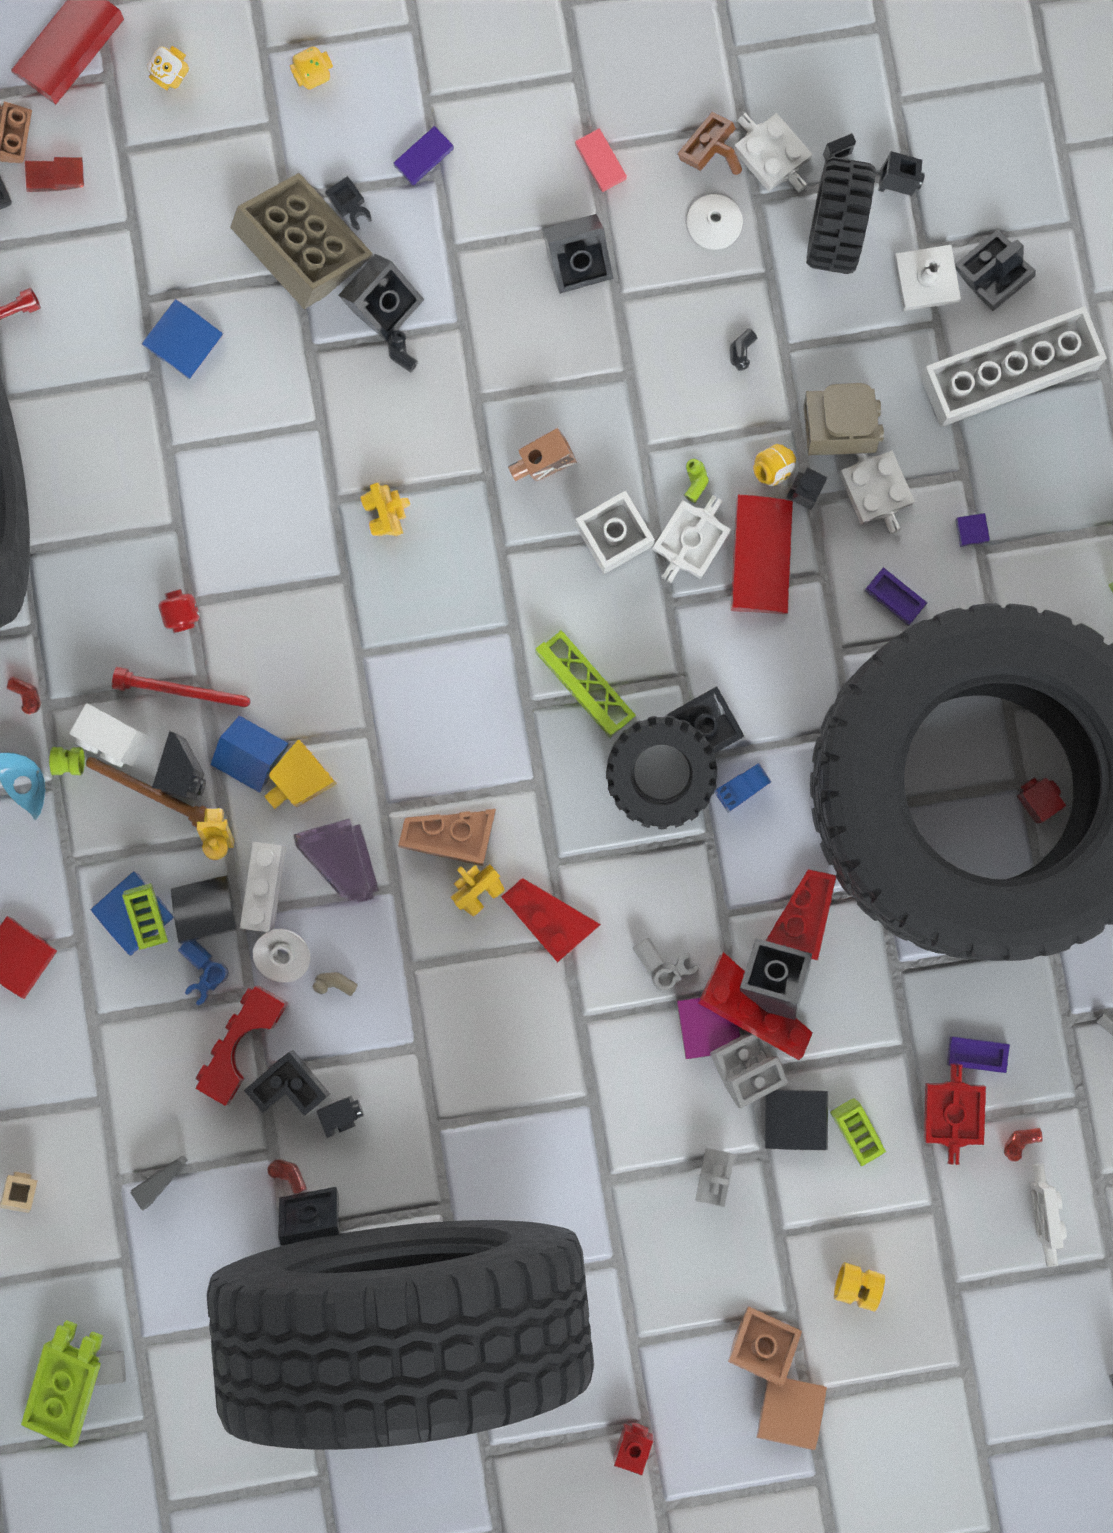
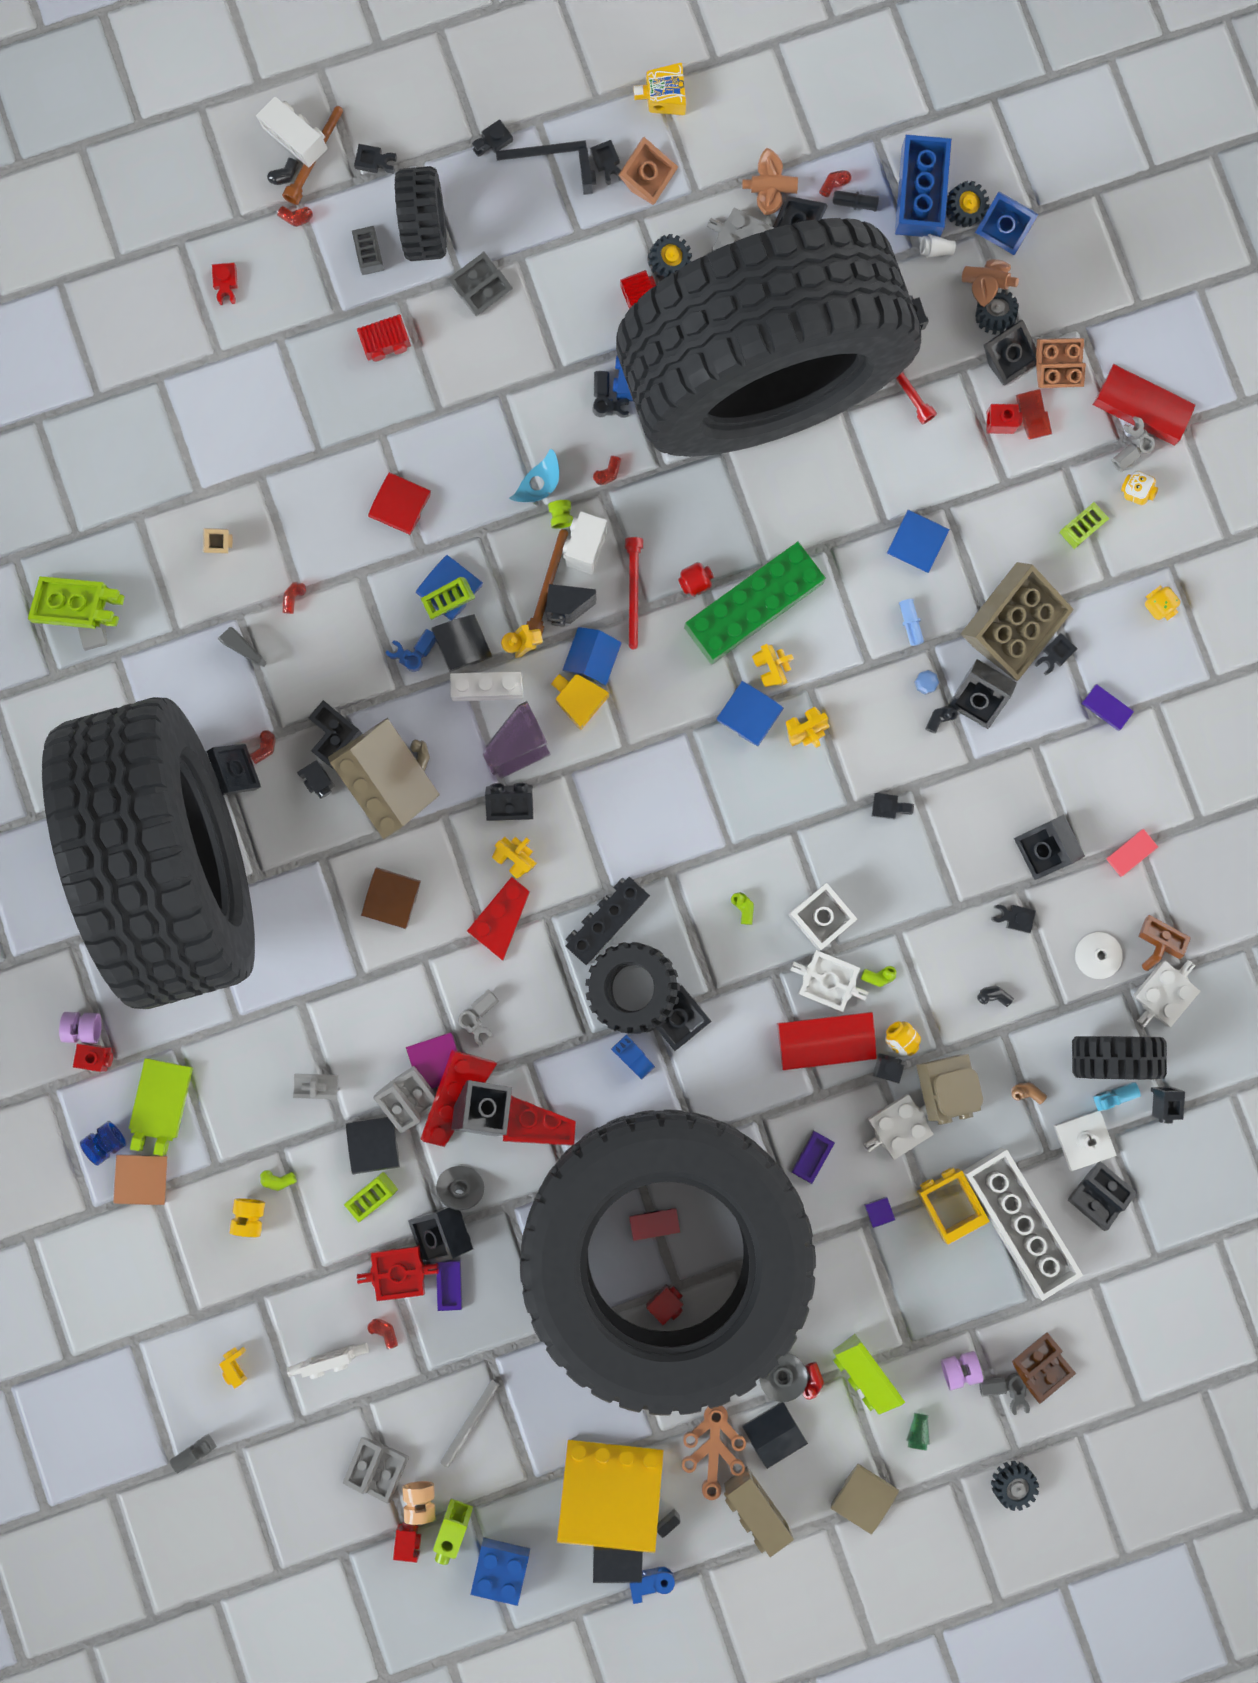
camera: 75 degrees right, 0 degrees up
(52, 210) = (1003, 418): none -> red brick
(104, 1112) = (290, 595): none -> clear red arm
(115, 56) = (1140, 443): none -> light grey bar
(211, 158) = (1071, 537): none -> lime slope
(221, 545) = (754, 602): none -> green brick
(222, 1077) = (332, 682): red arch -> none
(274, 963) = (427, 710): white dish -> none
(279, 364) = (911, 622): none -> light blue axle
(288, 541) = (768, 656): none -> yellow hips
(353, 1030) = (384, 778): none -> dark tan slope
(354, 360) = (926, 682): none -> medium blue tile
(354, 575) = (750, 713): none -> blue slope
(409, 883) = (509, 802): none -> black bracket
(450, 836) = (553, 828): nougat wing -> none
(495, 434) = (886, 806): none -> black plate
(501, 1048) = (390, 898): none -> reddish brown slope
(554, 452) = (877, 857): nougat torso -> none
(574, 789) = (607, 921): none -> black brick
(577, 690) = (688, 909): lime fence -> none
(585, 622) = (745, 905): none -> lime arm
(598, 1448) = (77, 1027): none -> lavender wheel
(655, 307) = (1017, 918): none -> black plate
(701, 1375) = (159, 1104): none -> lime tile
(743, 1456) = (100, 1145): none -> clear blue wheel
(764, 1346) = (188, 1149): nougat slope -> none
(823, 1244) = (275, 1183): none -> lime arm
(840, 147) = (1180, 1048): black tile -> none
(853, 1020) = (462, 1179): none -> dark grey dish
(858, 332) = (1026, 1090): none -> medium nougat arm
(883, 231) = (1117, 1096): none -> medium azure bar
(917, 1054) = (440, 1235): none -> black slope
(944, 796) = (654, 1224): none -> coral tile
(1005, 433) = (965, 1226): none -> yellow window
(1009, 258) = (1113, 1206): black tile -> none
(1039, 1334) = (231, 1370): none -> yellow bracket

